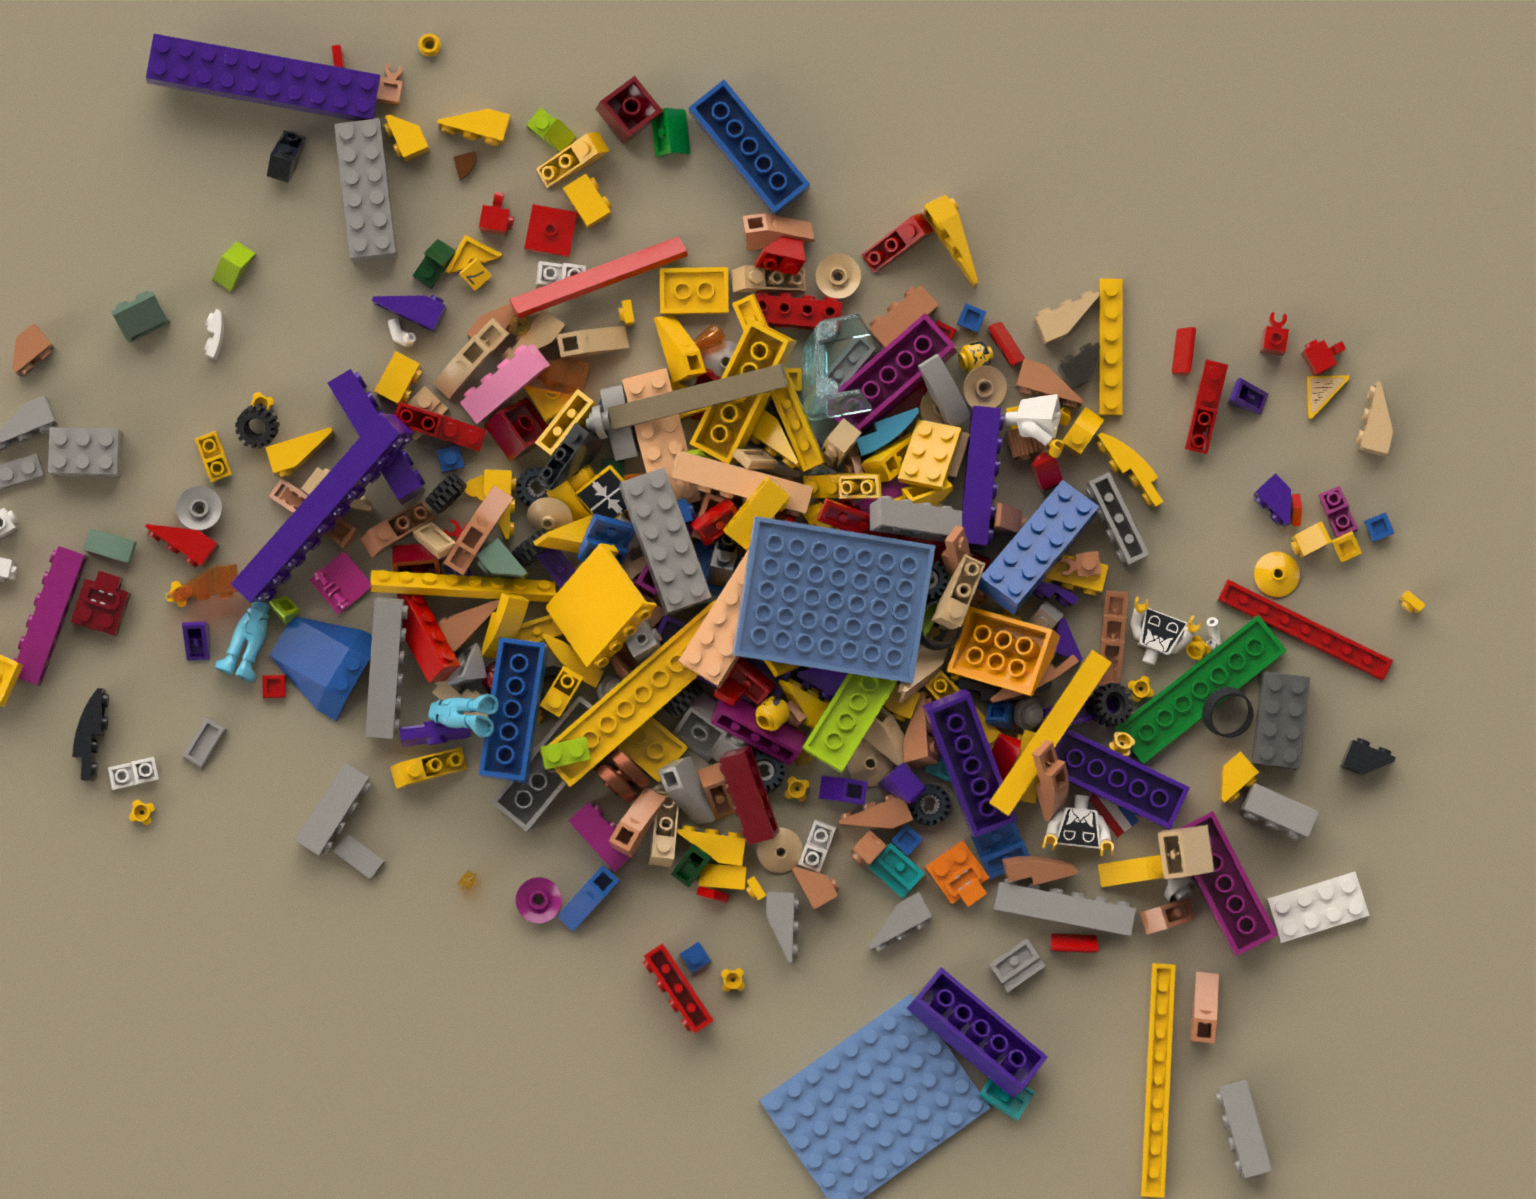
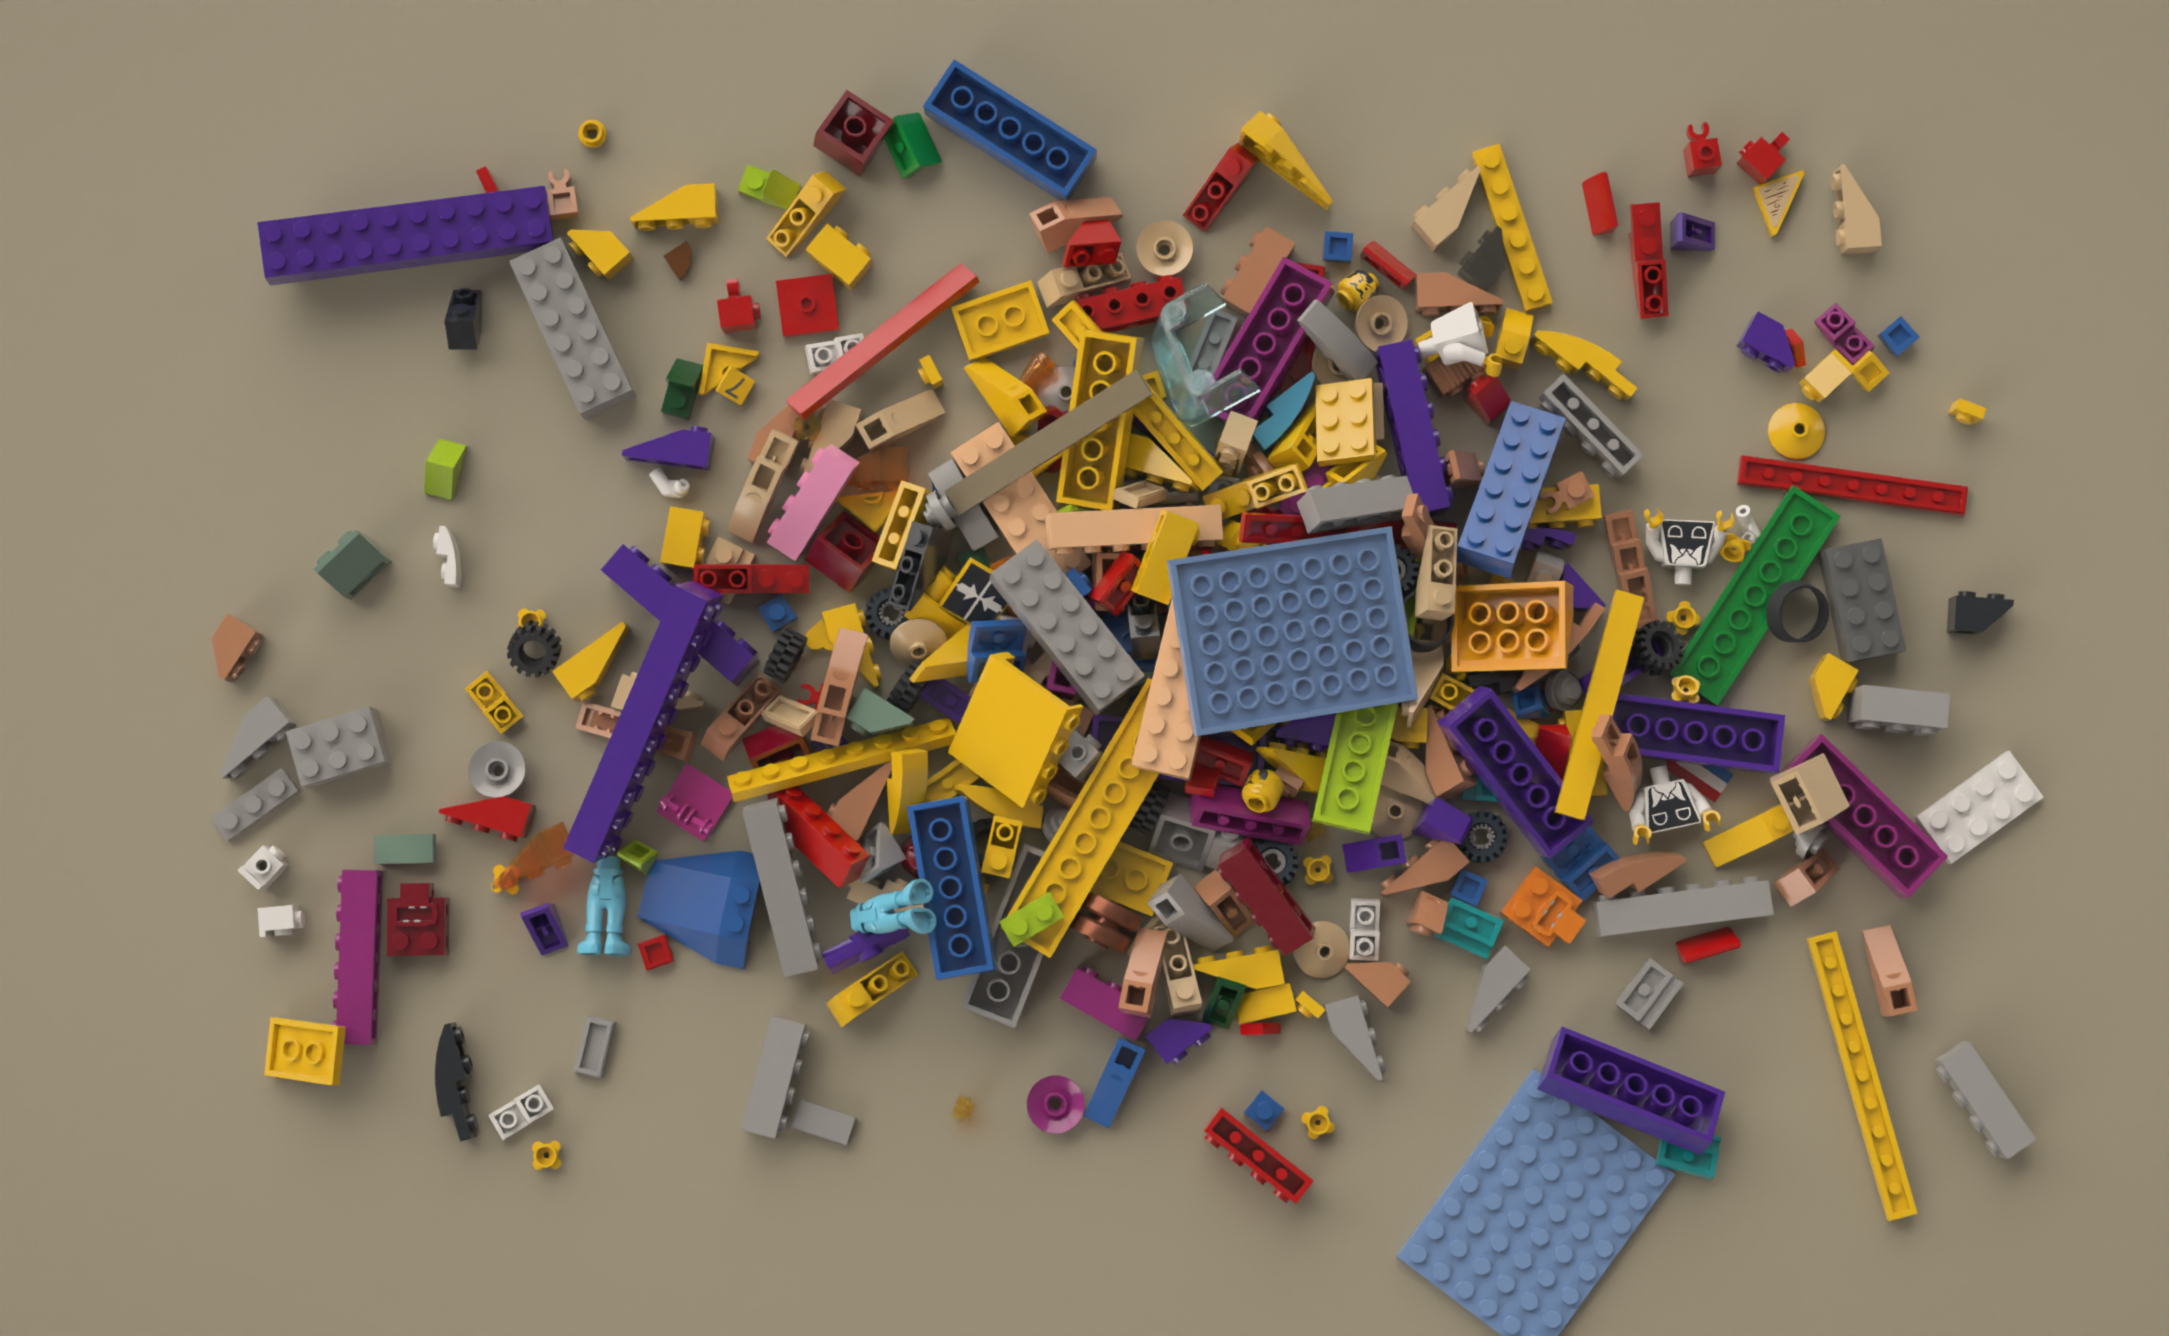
camera: 15 degrees left, 0 degrees up
(646, 878) = (1175, 1036): none -> dark purple slope

